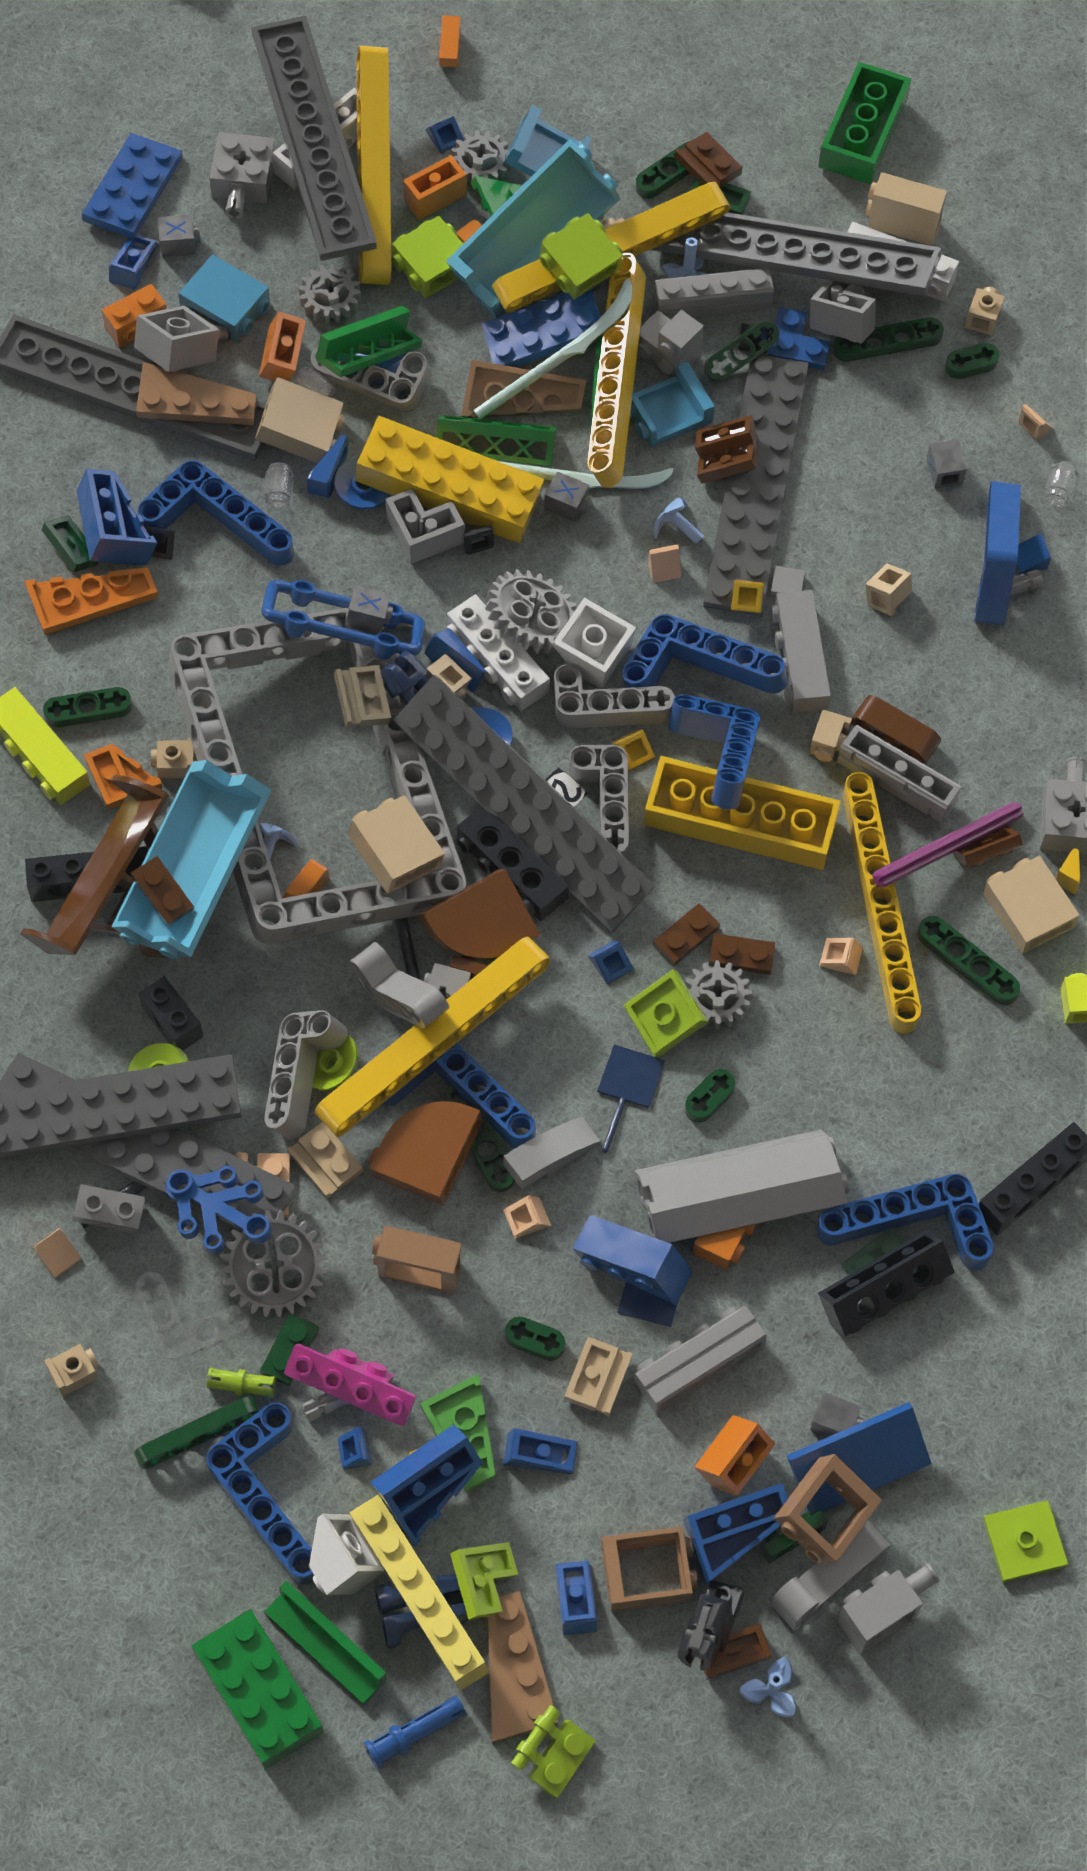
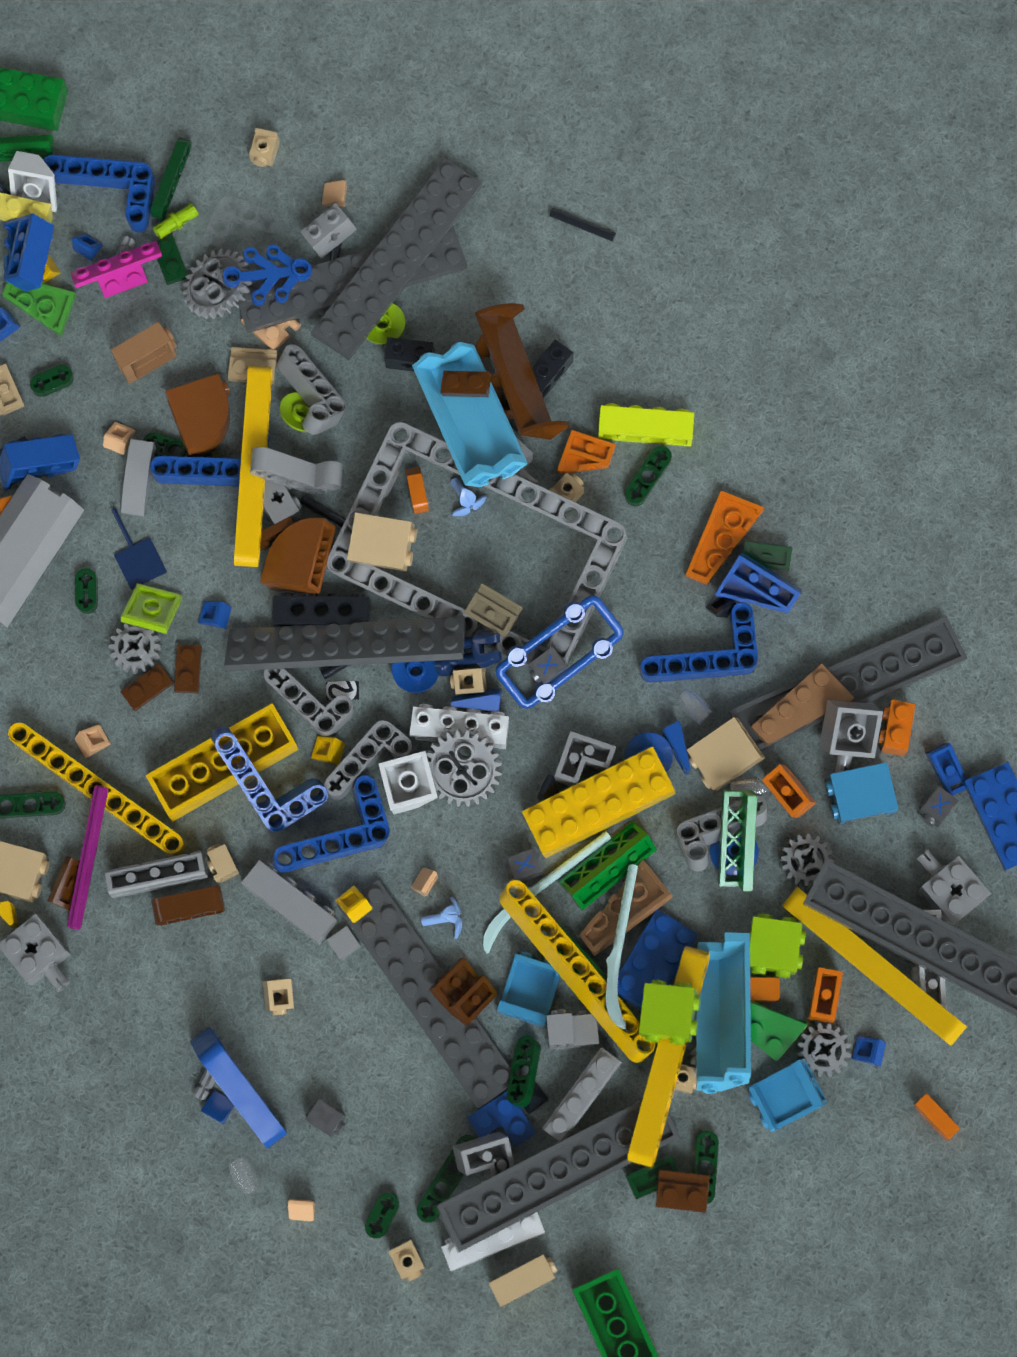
camera: 140 degrees right, 10 degrees up
(690, 262) = (624, 1095): light blue plant -> none

